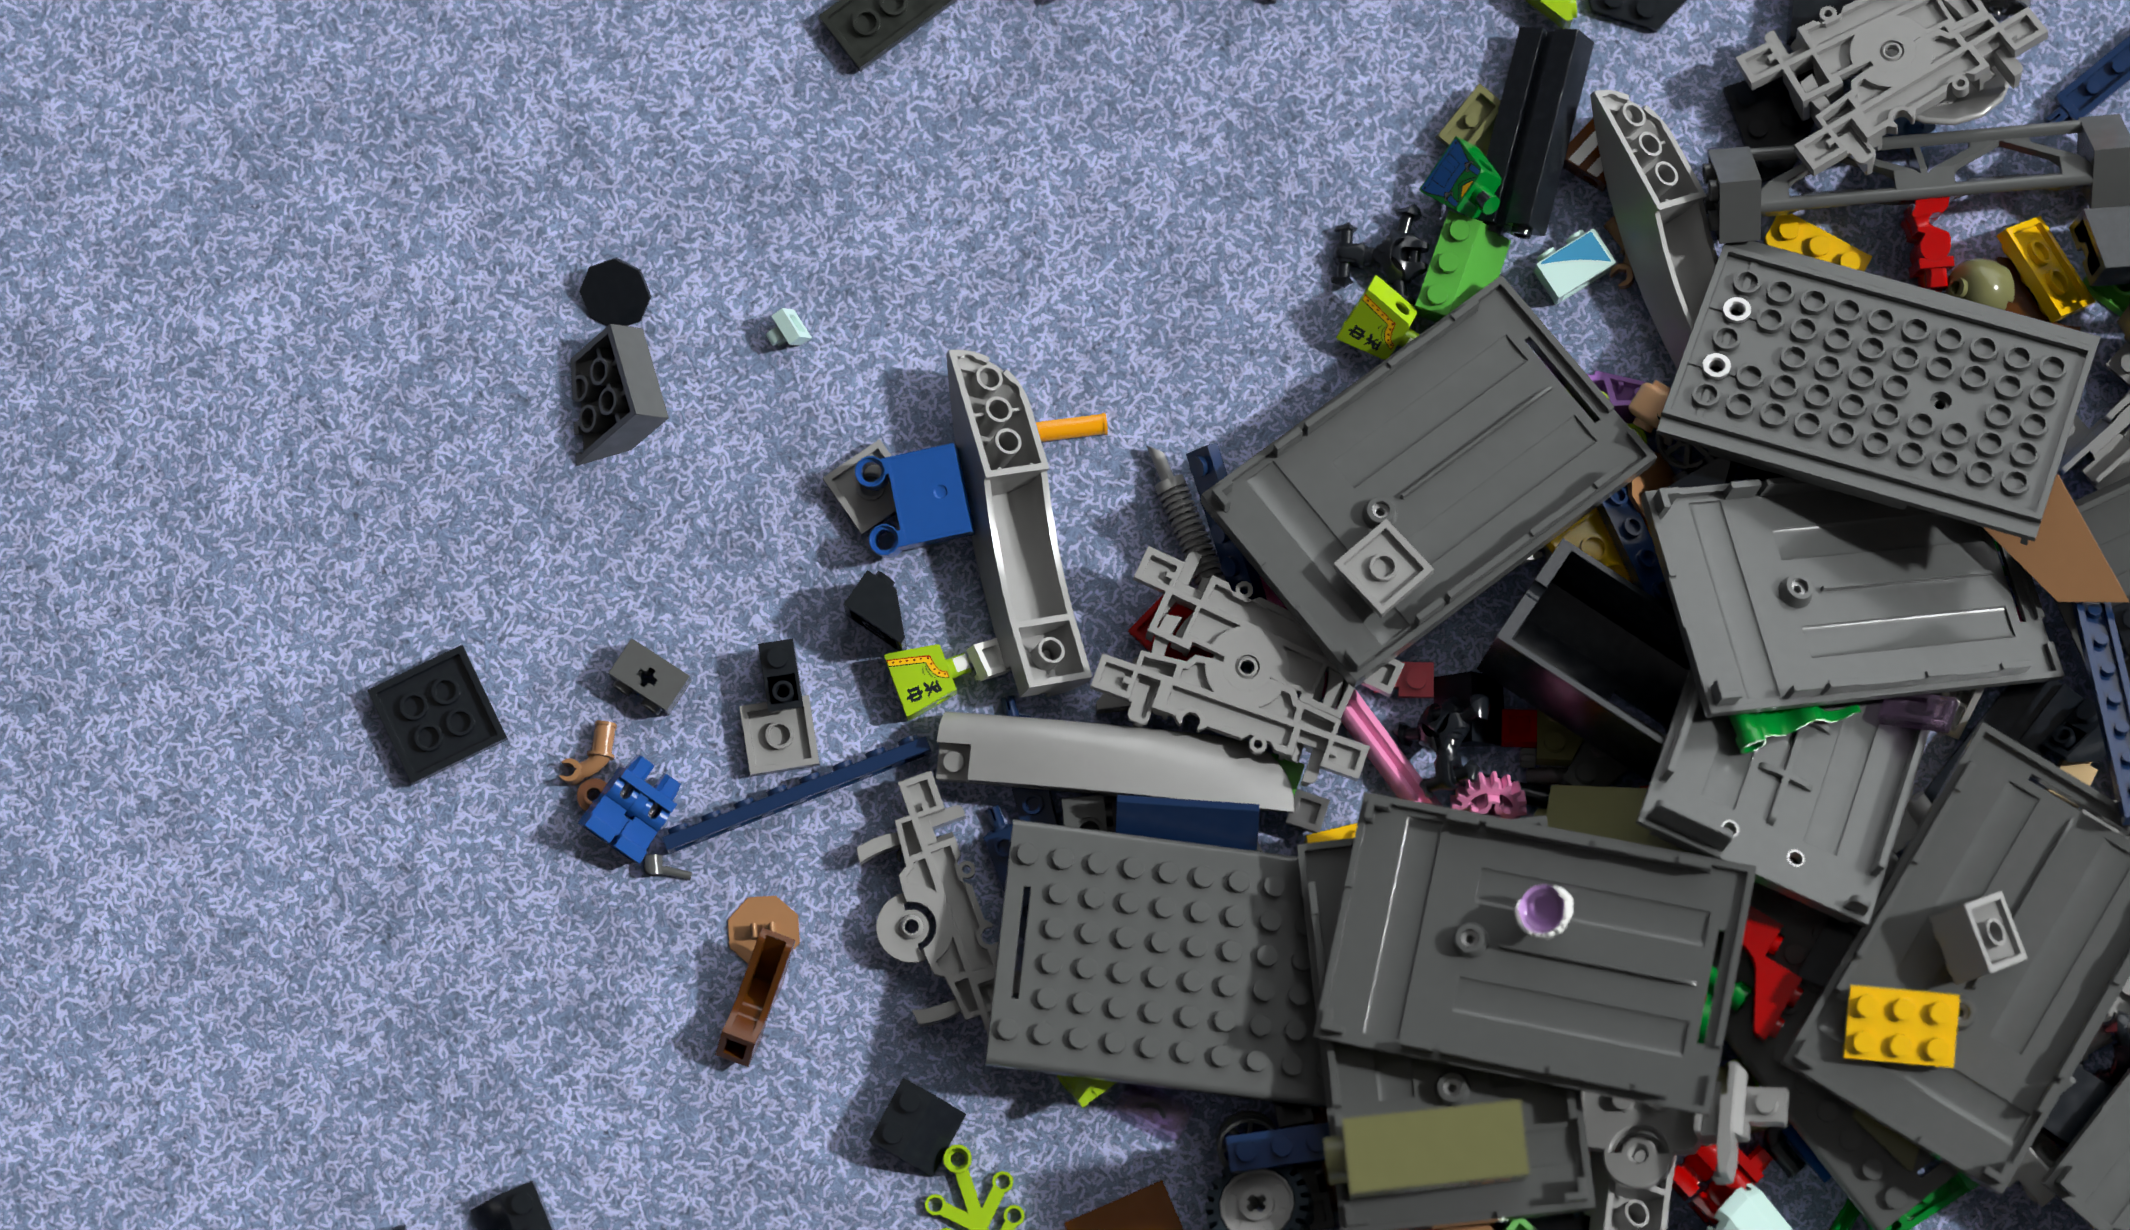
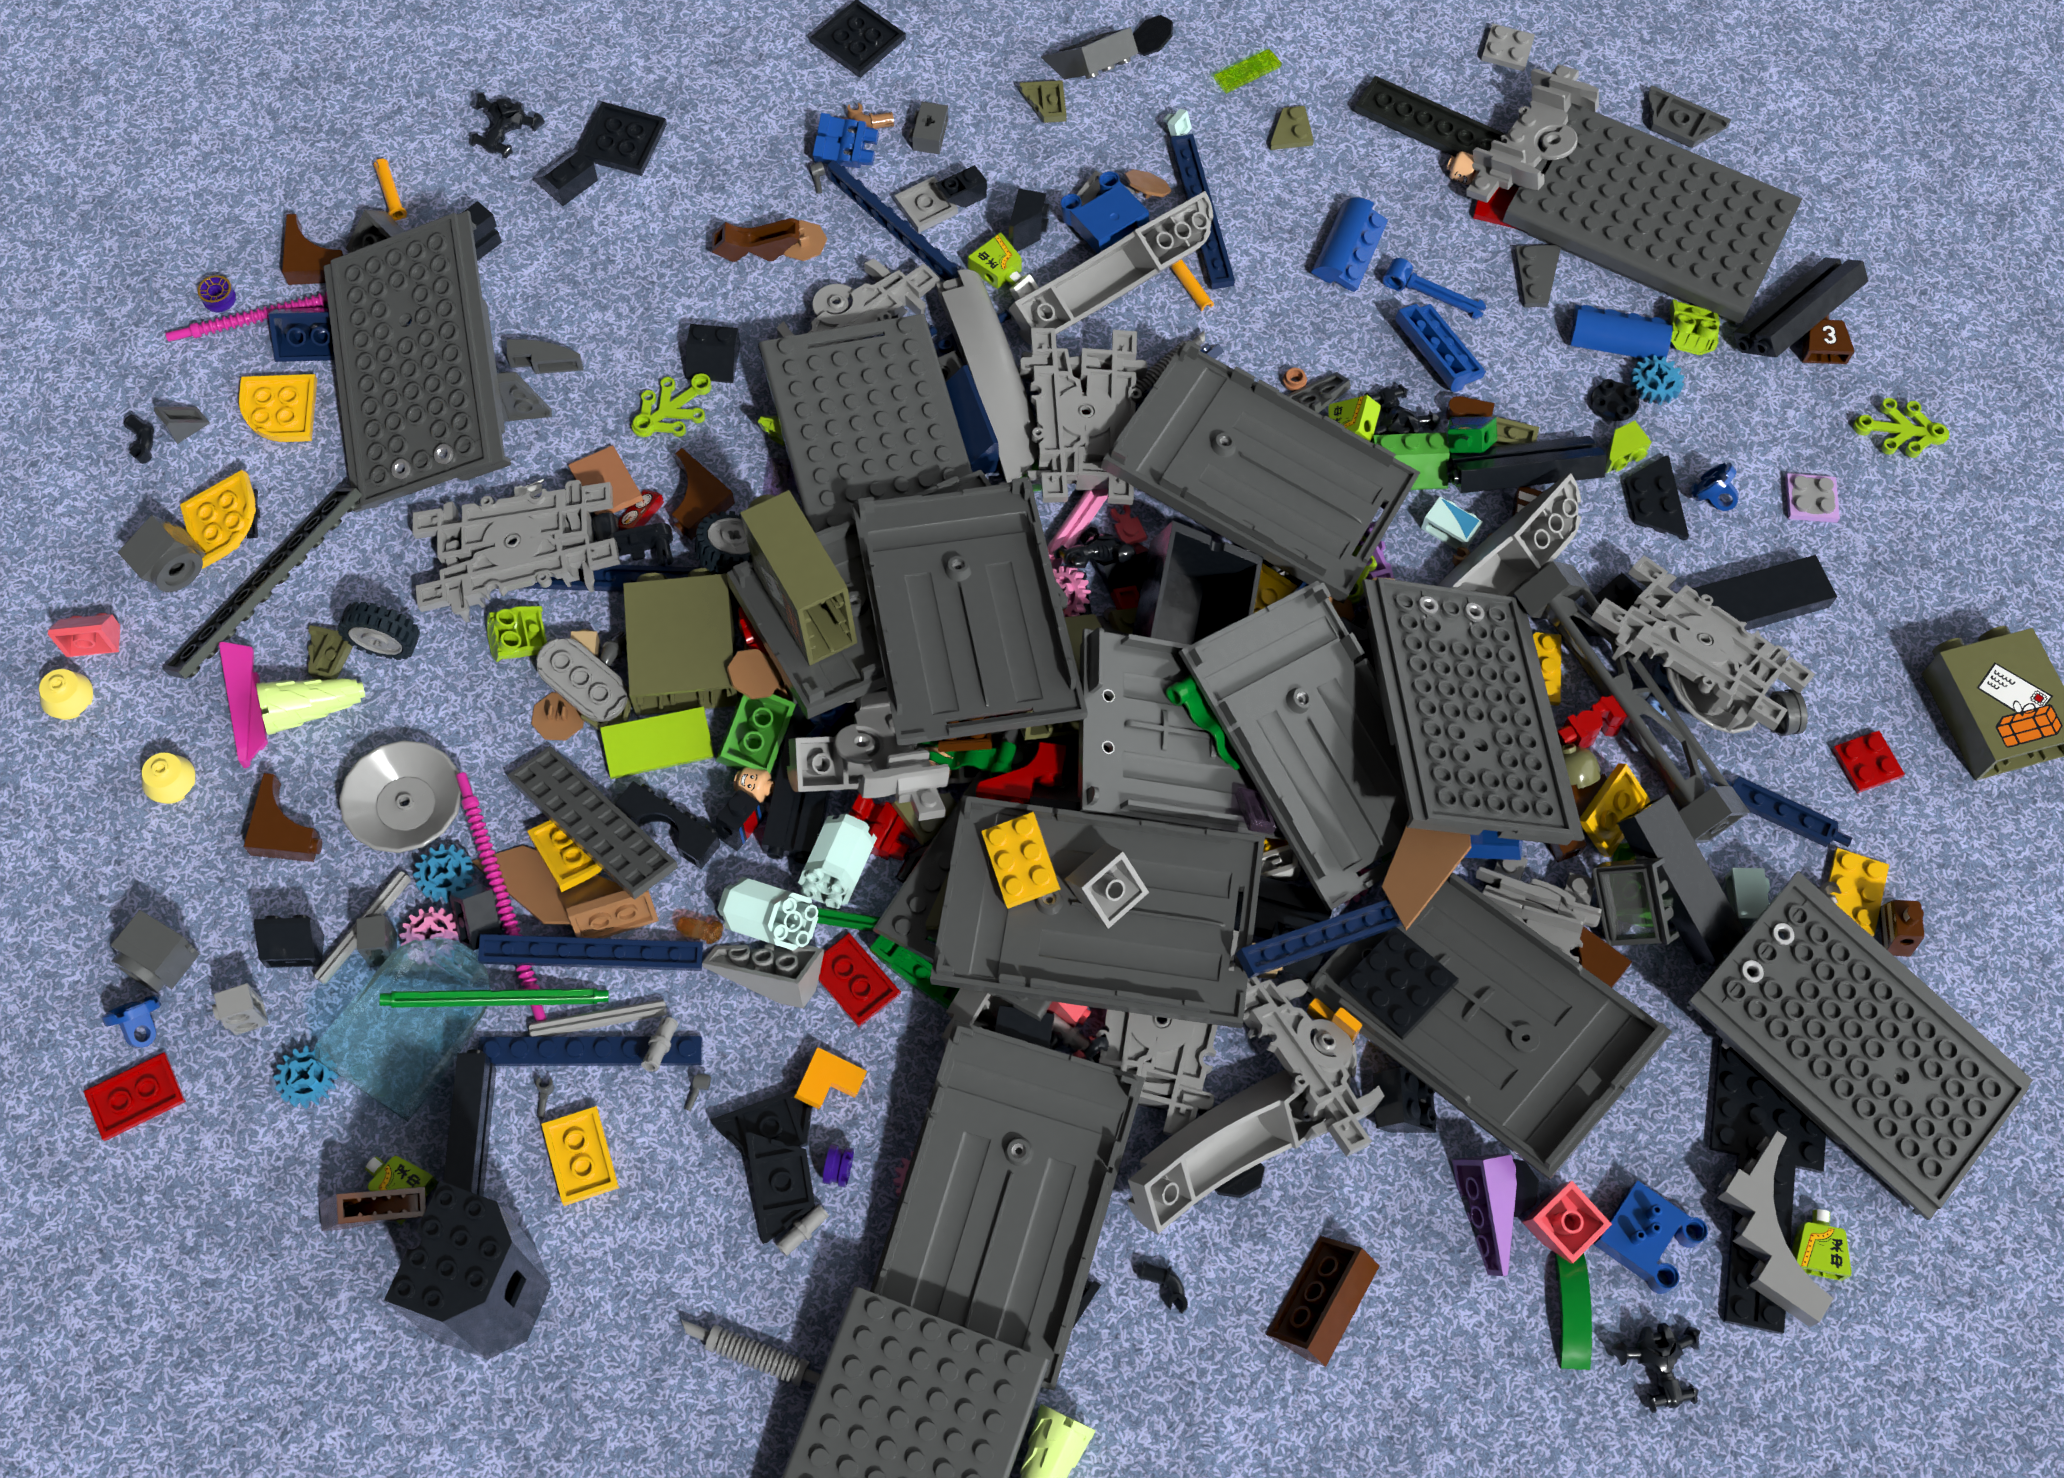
camera: 65 degrees right, 15 degrees down
(481, 1123) = (622, 138): none -> black plate
(664, 491) = (1046, 99): none -> olive wing
(727, 186) = (1247, 71): none -> clear neon green tile
(856, 171) = (1292, 129): none -> olive wing
(874, 415) = (1147, 183): none -> medium nougat piece
(929, 357) = (1194, 183): none -> dark blue plate
(1086, 187) = (1350, 243): none -> blue brick
(1168, 142) = (1400, 274): none -> blue piece
(1274, 351) = (1294, 373): none -> nougat plate
(1301, 147) = (1439, 346): none -> blue brick
(1314, 351) = (1322, 392): none -> dark grey wing
(1383, 568) = (1186, 448): light grey plate -> none
(1416, 155) = (1468, 407): none -> reddish brown leg
(1544, 911) = (993, 592): lavender hair -> none

